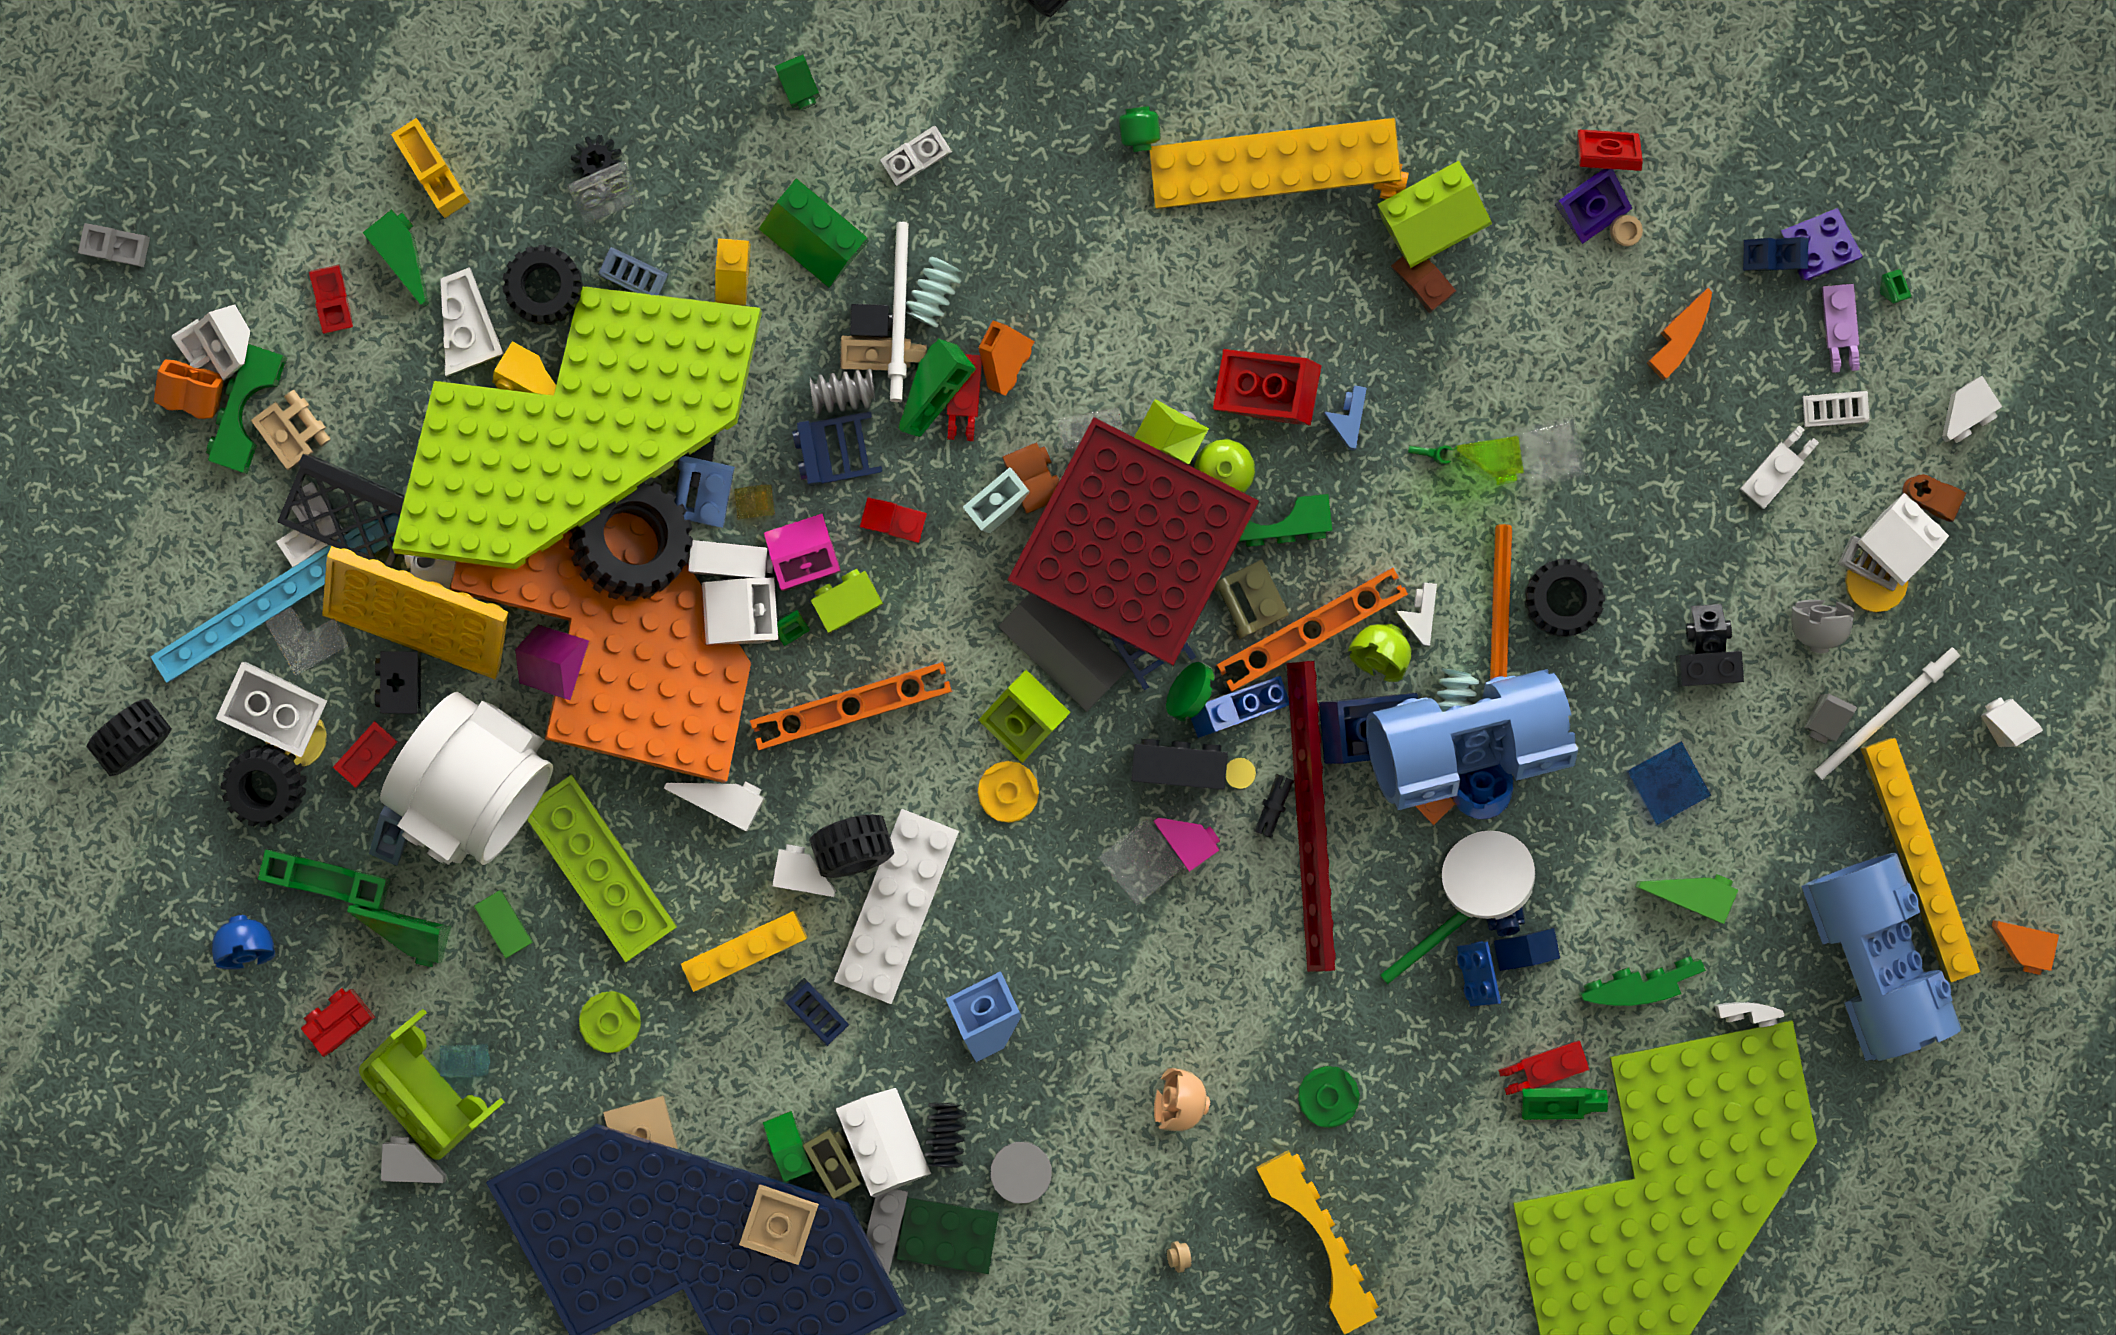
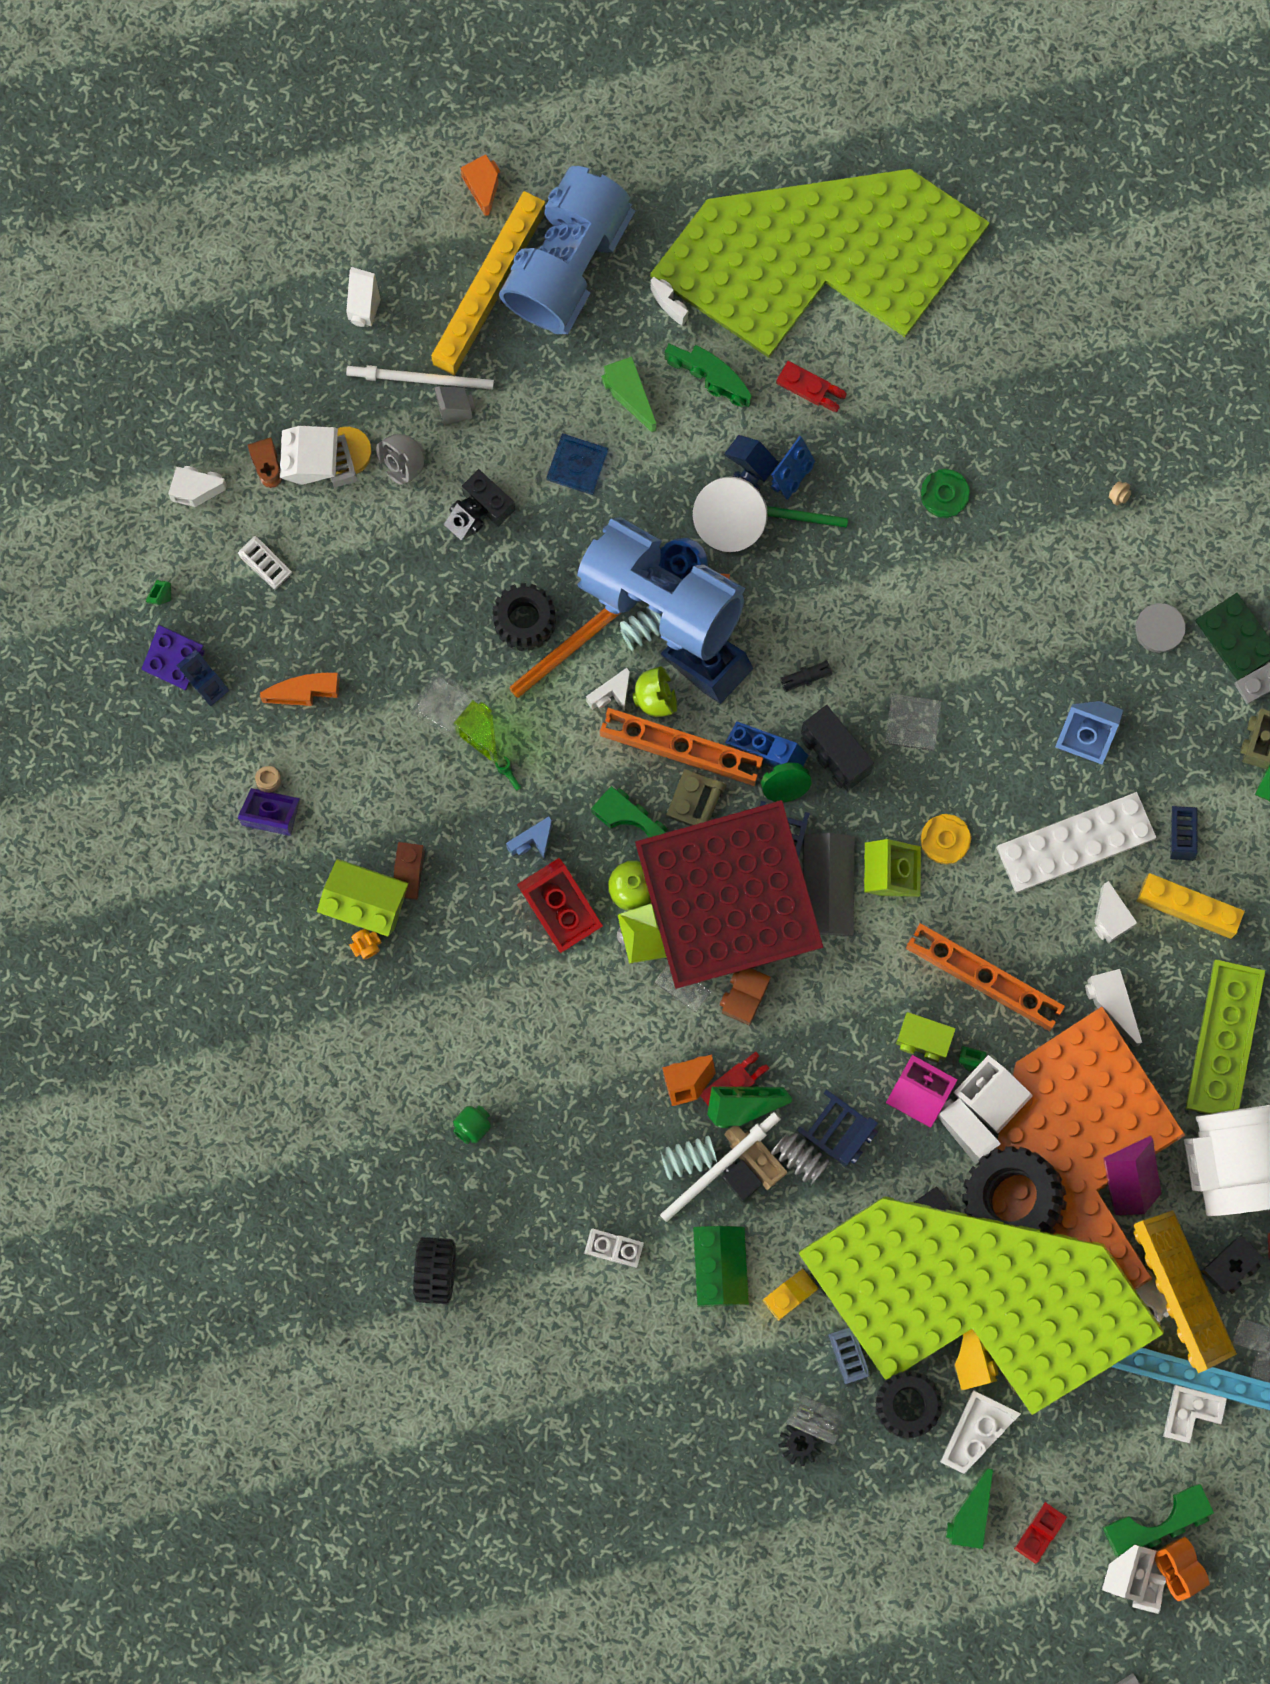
camera: 135 degrees left, 10 degrees down
(283, 436) = (1152, 1483): tan plate -> none
(350, 484) = (1142, 1407): black fence -> none
(430, 168) = (901, 1546): yellow slope -> none
(712, 491) = (938, 1179): medium blue plate -> none
(754, 501) = (917, 1151): clear yellow slope -> none
(798, 82) = (637, 1360): green slope -> none
(851, 846) = (1069, 895): black tyre -> none
(883, 1142) = (1221, 720): white slope -> none
(893, 519) = (849, 1056): red slope -> none
(945, 1135) = (1182, 687): black piece -> none
(997, 501) = (780, 1000): light aqua slope -> none
(1182, 1101) = (1033, 567): light nougat cylinder -> none
(1189, 840) = (873, 705): dark pink slope -> none
(1240, 773) = (803, 711): light yellow tile -> none
(1275, 163) = (418, 1021): yellow plate -> none
(1311, 816) = (792, 648): dark red plate -> none
(1347, 1299) = (1020, 468): yellow arch -> none
(1562, 1103) = (821, 357): green hinge -> none
(1609, 150) = (228, 829): red plate -> none
(1777, 470) = (331, 565): white hinge -> none
(1841, 324) = (211, 604): lavender hinge -> none

